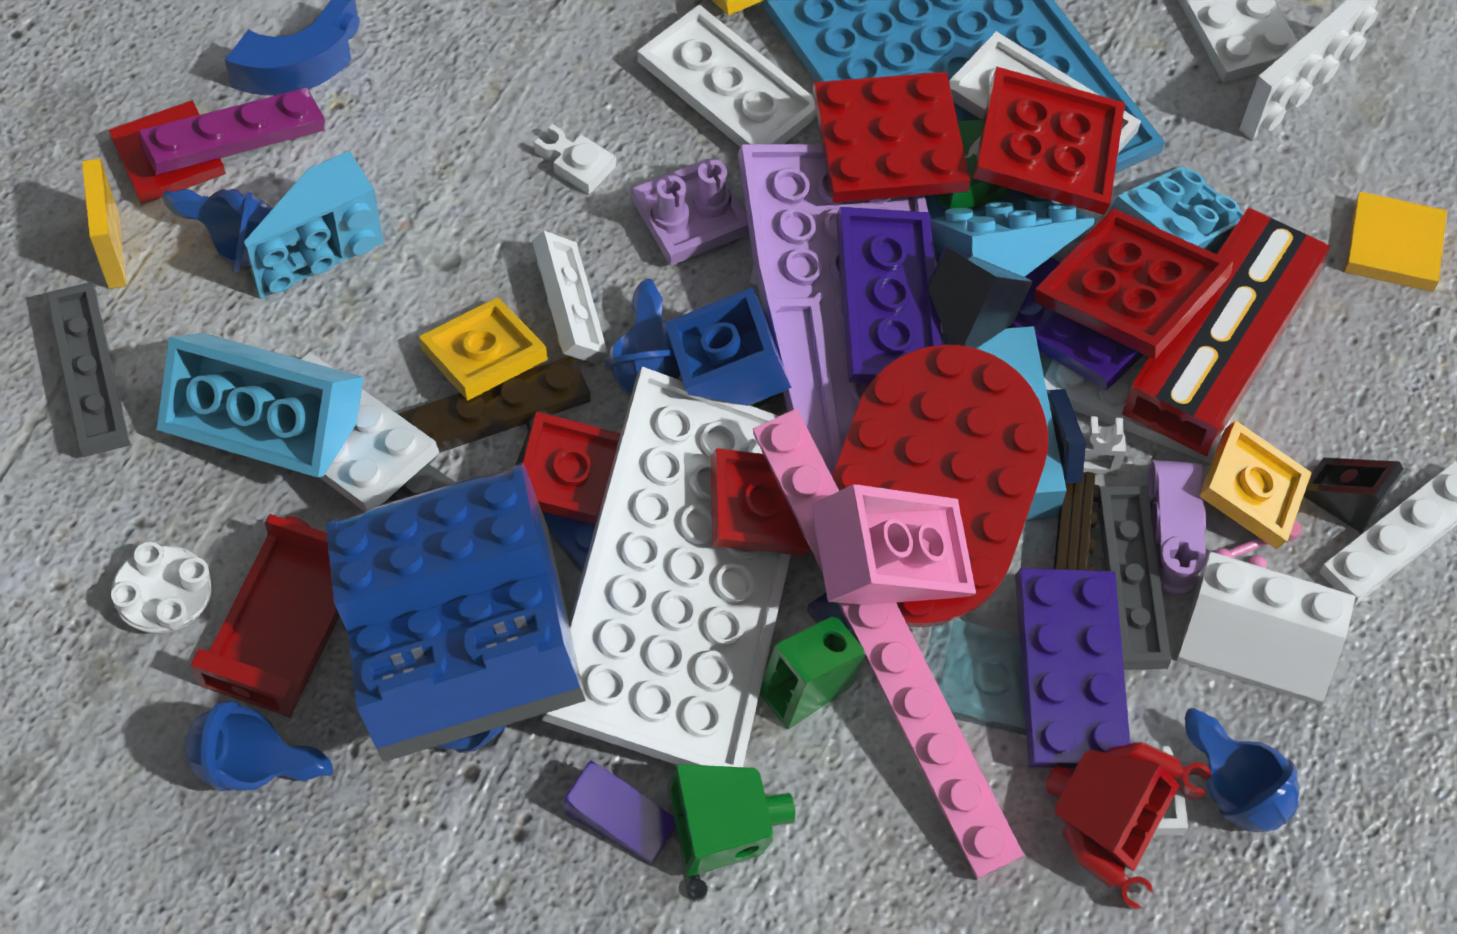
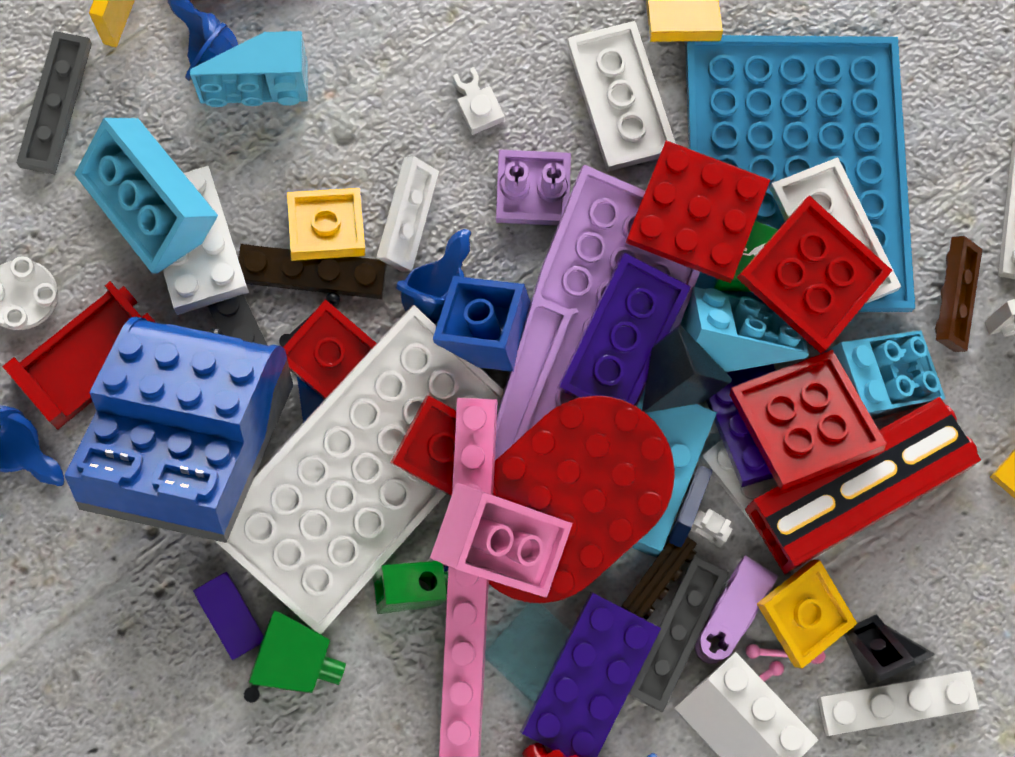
camera: 25 degrees right, 15 degrees up
(1198, 111) = (958, 294): none -> reddish brown plate

